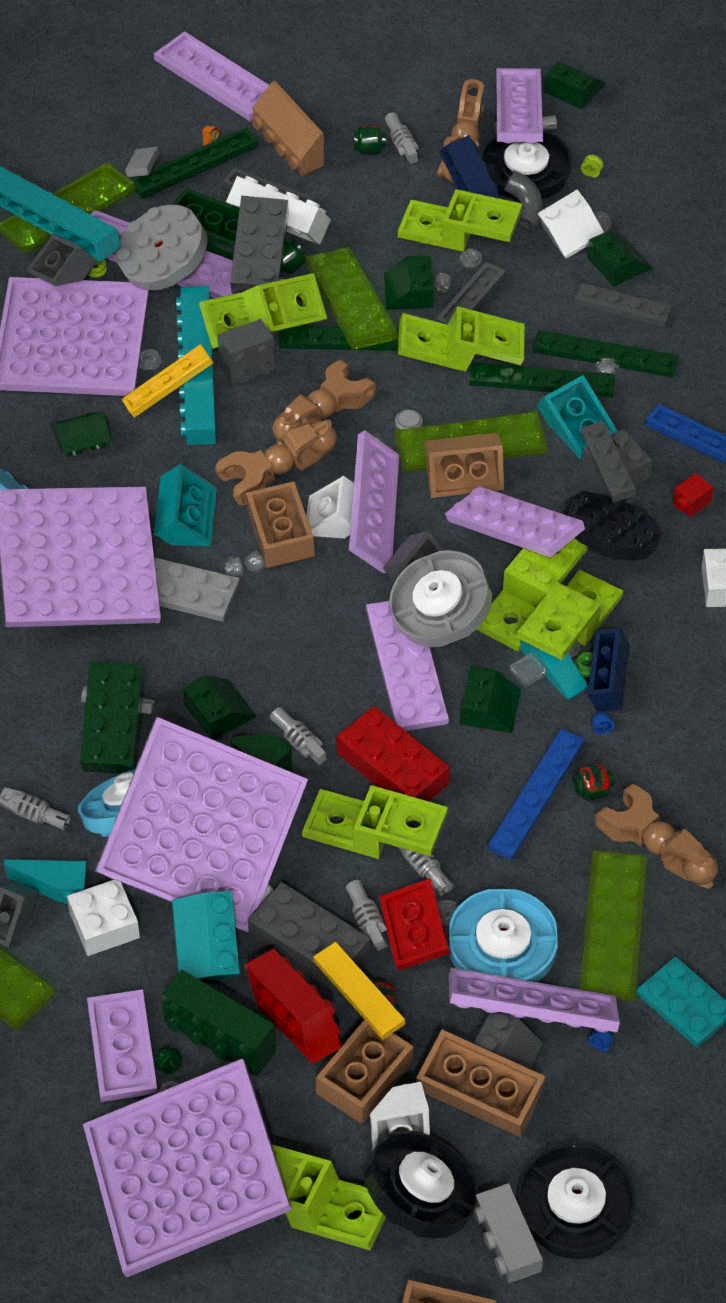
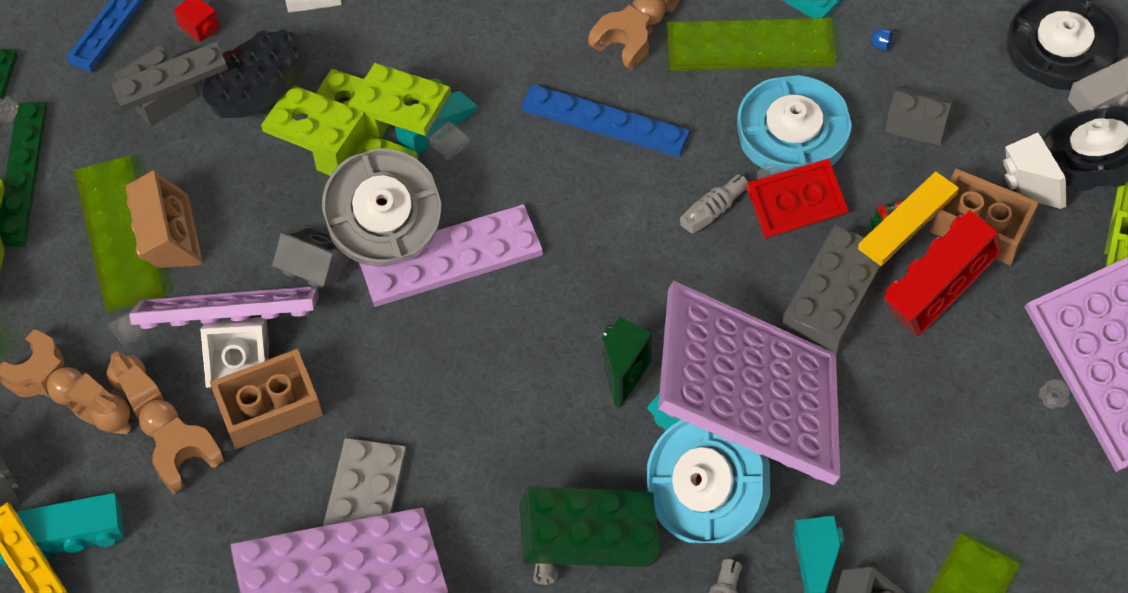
camera: 95 degrees left, 5 degrees up
(103, 917) = (860, 497): white brick -> none
(122, 1045) = (1010, 451): lavender plate -> none
(168, 1060) = (1015, 403): dark green plate -> none
(185, 508) = (239, 515): teal slope -> none
(206, 936) = (870, 375): teal slope -> none
(216, 705) = (541, 430): dark green slope -> none
(218, 1022) = (972, 351): dark green brick -> none
(233, 567) = (328, 446): clear plate -> none
(254, 562) = (317, 423): clear hinge -> none
(299, 736) = (568, 342): light grey hinge -> none
(367, 914) = (790, 246): light grey hinge -> none
(375, 822) = (682, 235): lime bracket -> none
(392, 757) = (591, 244): red brick -> none
(408, 419) = (84, 299): light grey piece -> none
(481, 1083) = (973, 116): medium nougat slope -> none
(489, 700) = (496, 173): dark green slope -> none
(515, 521) = (259, 155): lavender plate -> none
(533, 1000) = (870, 83): lavender plate -> none
(571, 409) = (83, 129): teal slope -> none
(593, 782) = (586, 71): dark green head -> none
(601, 720) = (506, 72): blue hinge -> none
(608, 669) = (447, 63): dark blue brick -> none

